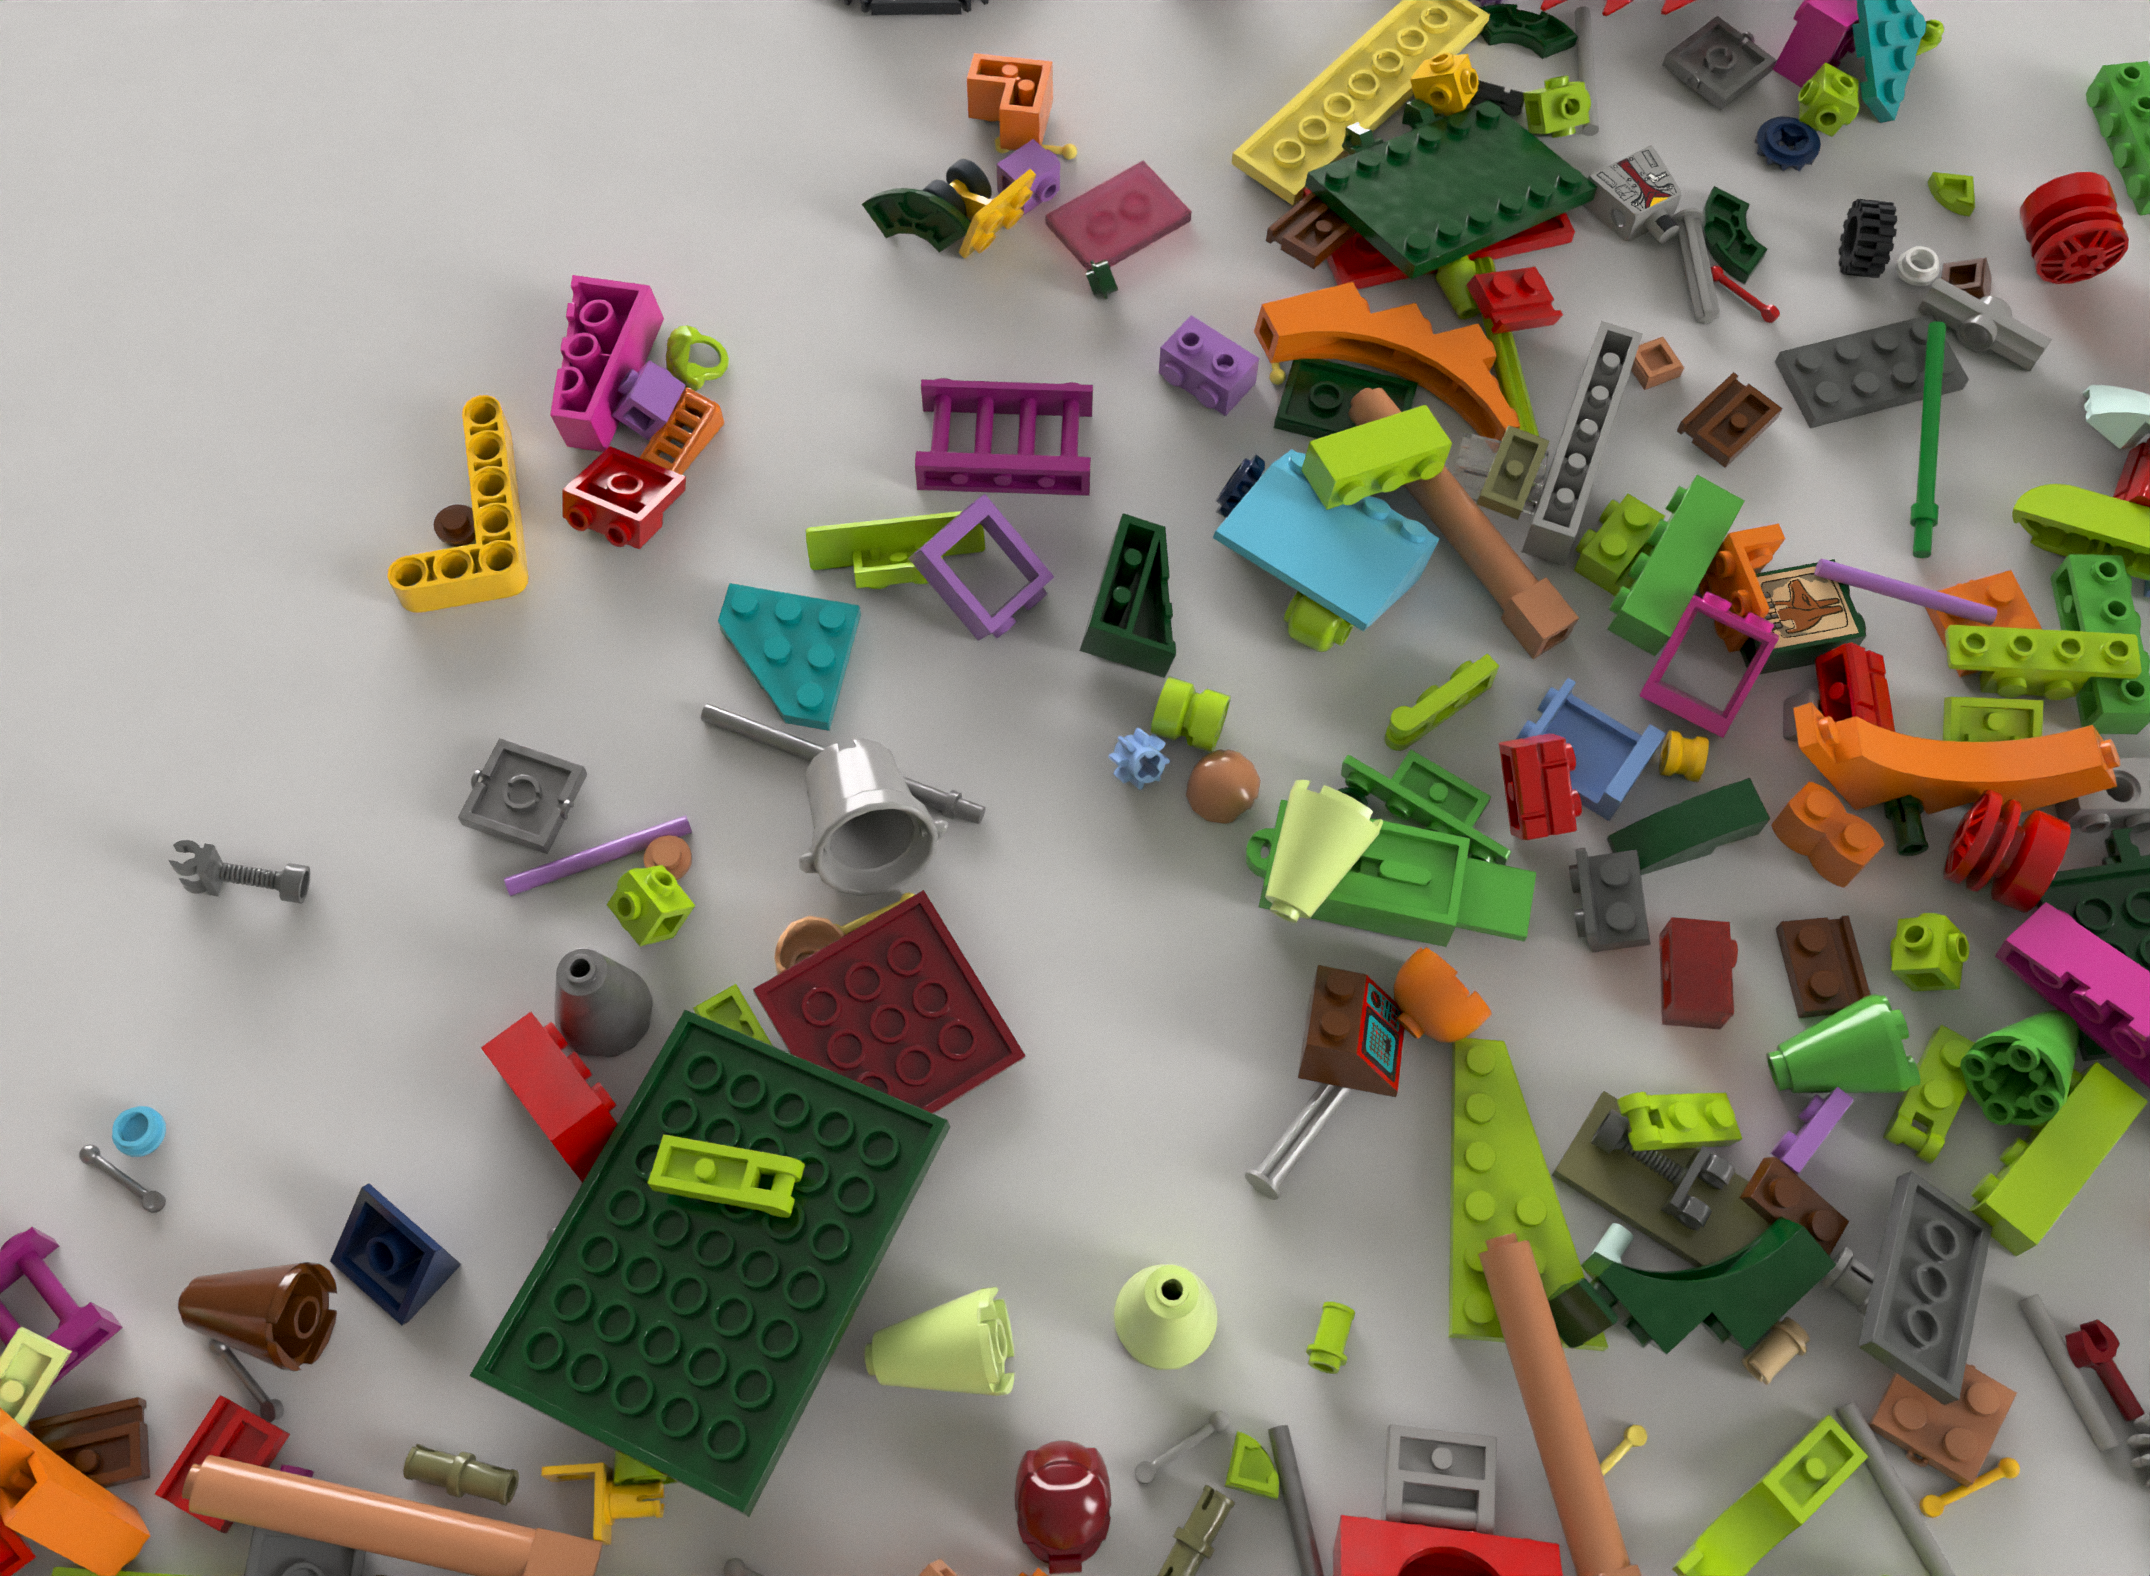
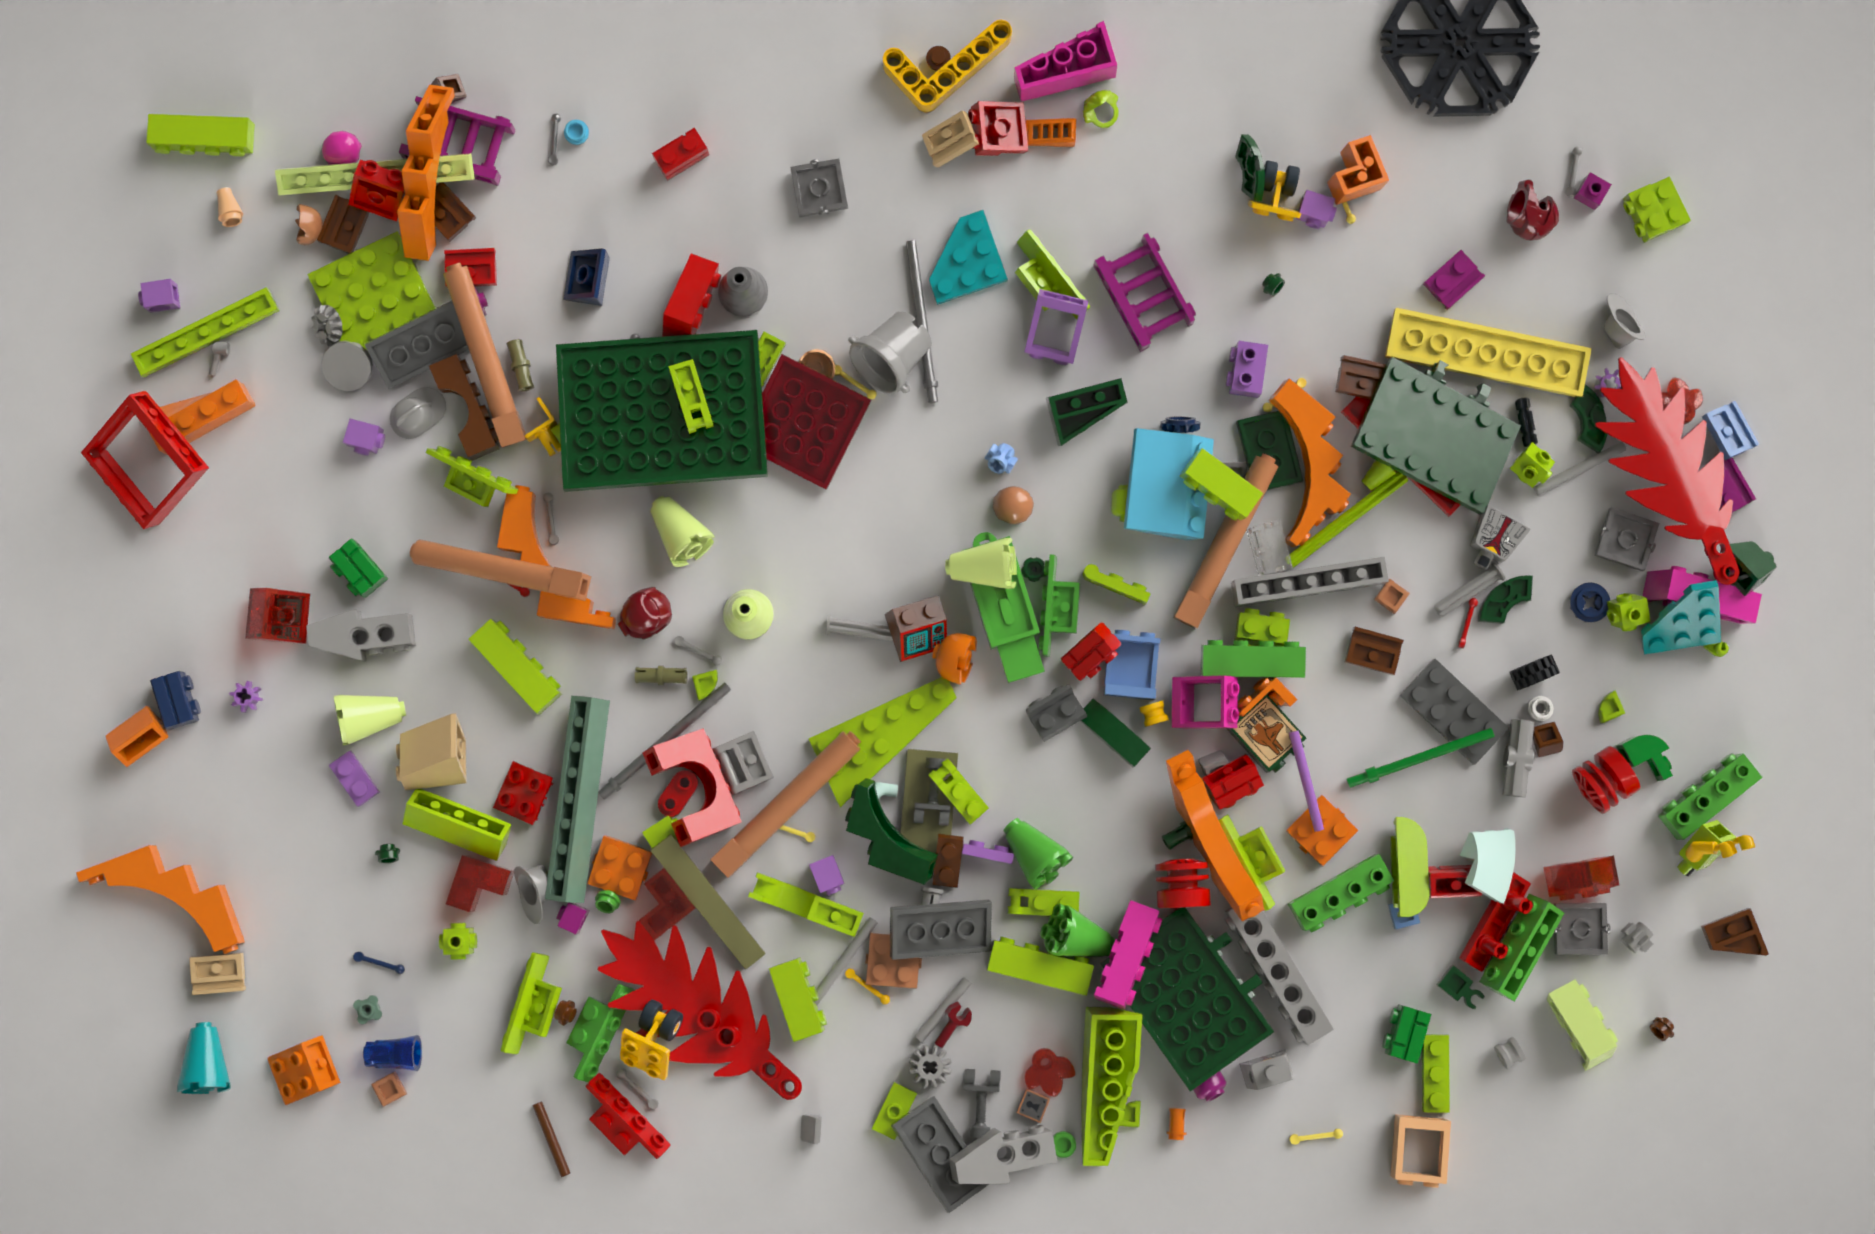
camera: 55 degrees right, 20 degrees up
(265, 1312) = (533, 241): reddish brown cone -> none
(270, 1409) = (501, 270): flat silver hinge -> none
(291, 882) = (701, 77): dark grey bar -> none
(306, 975) = (680, 154): none -> red brick
(589, 565) = (950, 139): none -> tan plate
(594, 856) = (812, 240): medium lavender bar -> none
(647, 399) = (1058, 104): medium lavender brick -> none
(650, 904) = (799, 281): lime brick -> none
(671, 853) = (828, 273): nougat plate -> none
(1118, 217) = (1321, 269): clear pink tile -> none
(1190, 714) = (1038, 465): lime wheel -> none
(1234, 81) = (1453, 279): none -> magenta plate
(1331, 1338) = (777, 688): lime pin -> none
(1445, 83) = (1508, 396): yellow brick -> none
(1513, 472) = (1260, 555): olive plate -> none
(1514, 299) = (1383, 505): red plate -> none
(1580, 1312) = (843, 785): dark green slope -> none
(1697, 973) = (1040, 769): clear red brick -> none
(1728, 1440) = (827, 875): none -> medium lavender brick
(1776, 1350) = (880, 879): tan pin -> none
(1822, 965) = (1081, 827): reddish brown plate -> none
(1833, 840) = (1146, 806): orange brick -> none
(1929, 953) = (1111, 870): lime brick -> none
(2039, 659) = (1306, 861): lime bracket -> none
(2044, 163) = (1648, 749): none -> green brick

